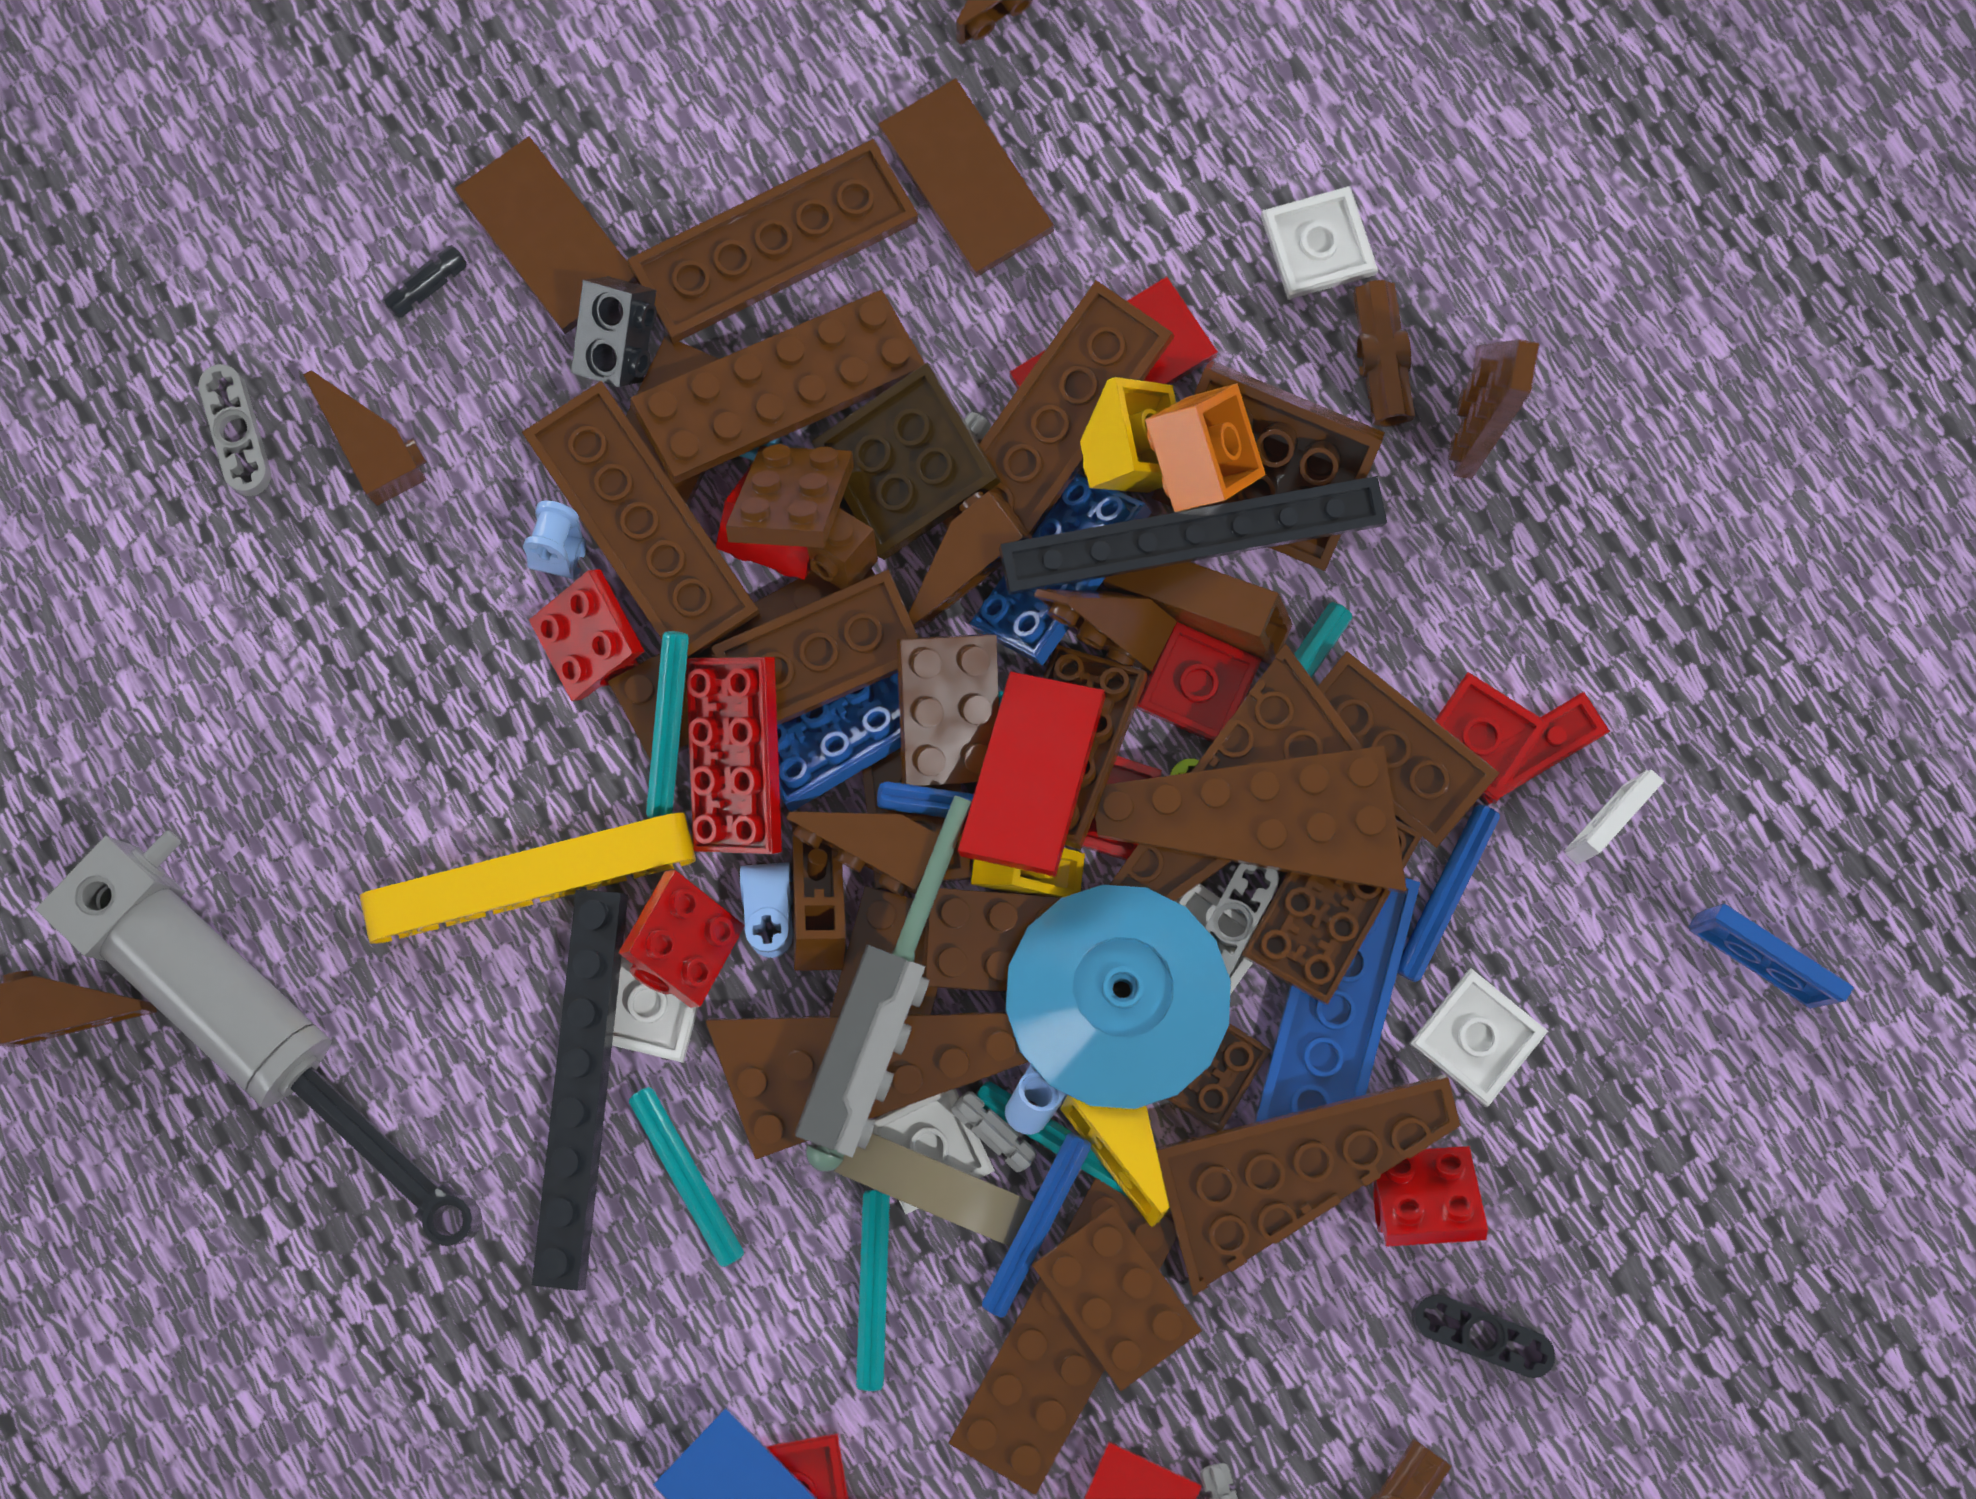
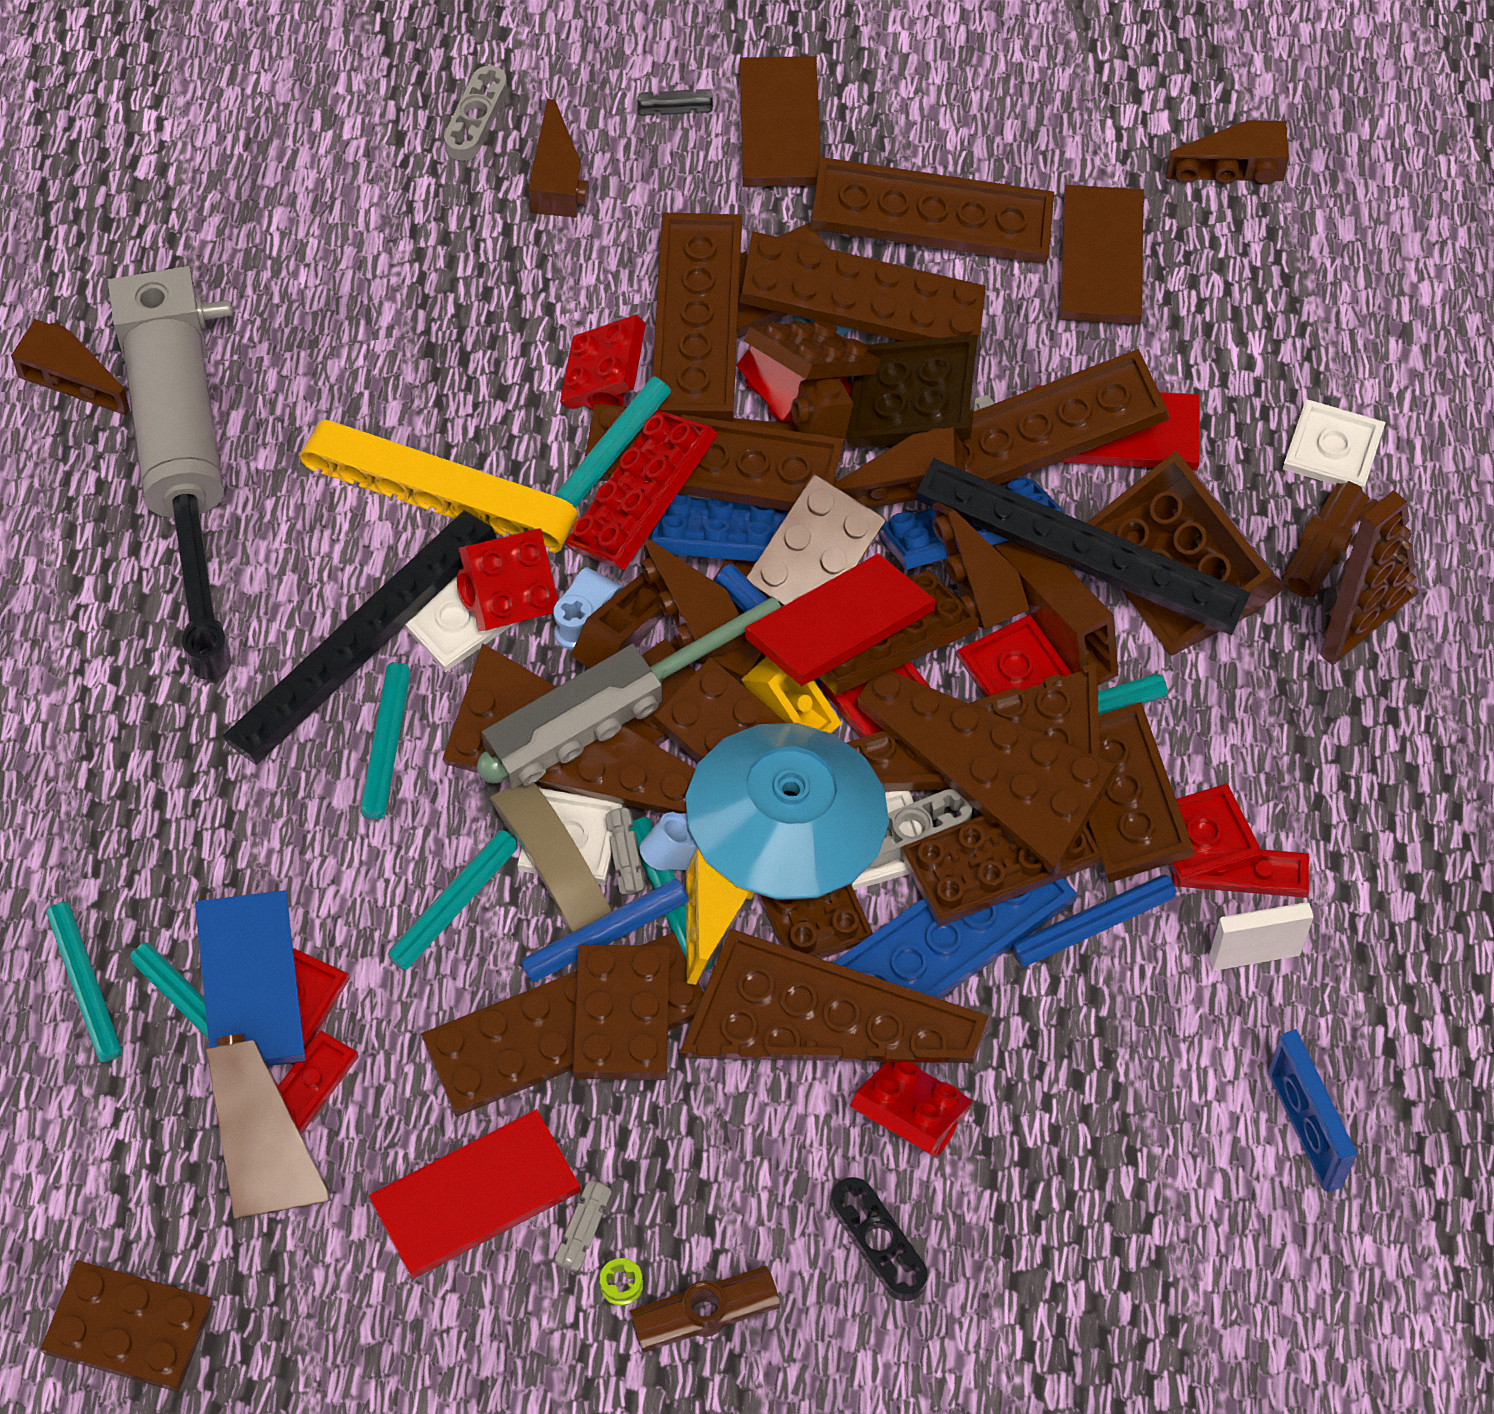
camera: 35 degrees right, 20 degrees down
(555, 541) = (630, 289): light blue piece -> none
(604, 329) = (775, 192): black brick -> none
(1116, 437) = (1089, 466): yellow slope -> none
(1205, 448) = (1134, 491): orange brick -> none
(1478, 1037) = (1040, 1034): white tile -> none

